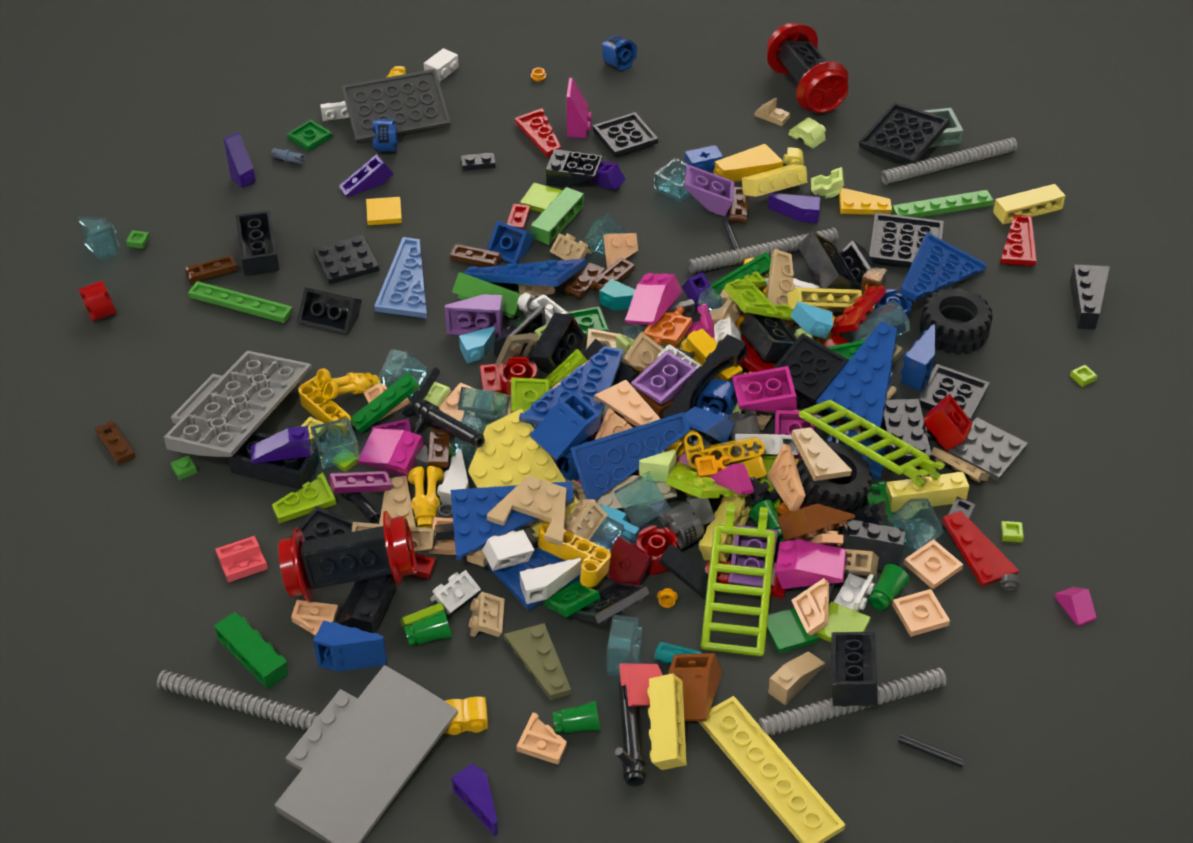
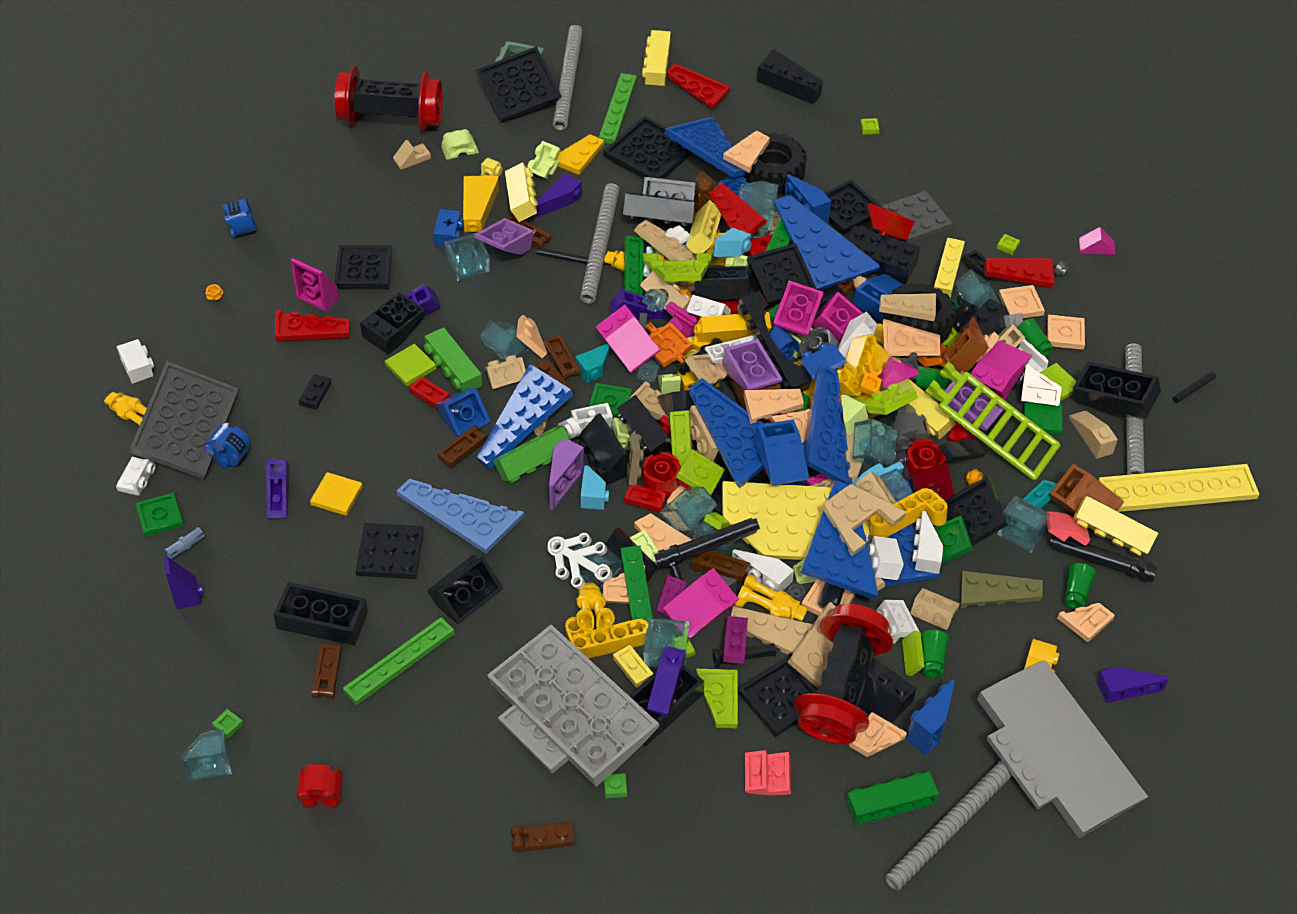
camera: 65 degrees left, 5 degrees up
(392, 340) = (577, 557): none -> white plant
(479, 422) = (716, 520): none -> lime tile
(870, 451) = (936, 253): lime bar -> none
(896, 559) = (1013, 319): none -> light grey plate
(933, 286) = (747, 151): none -> light nougat wing
(959, 465) = (939, 235): tan wing -> none

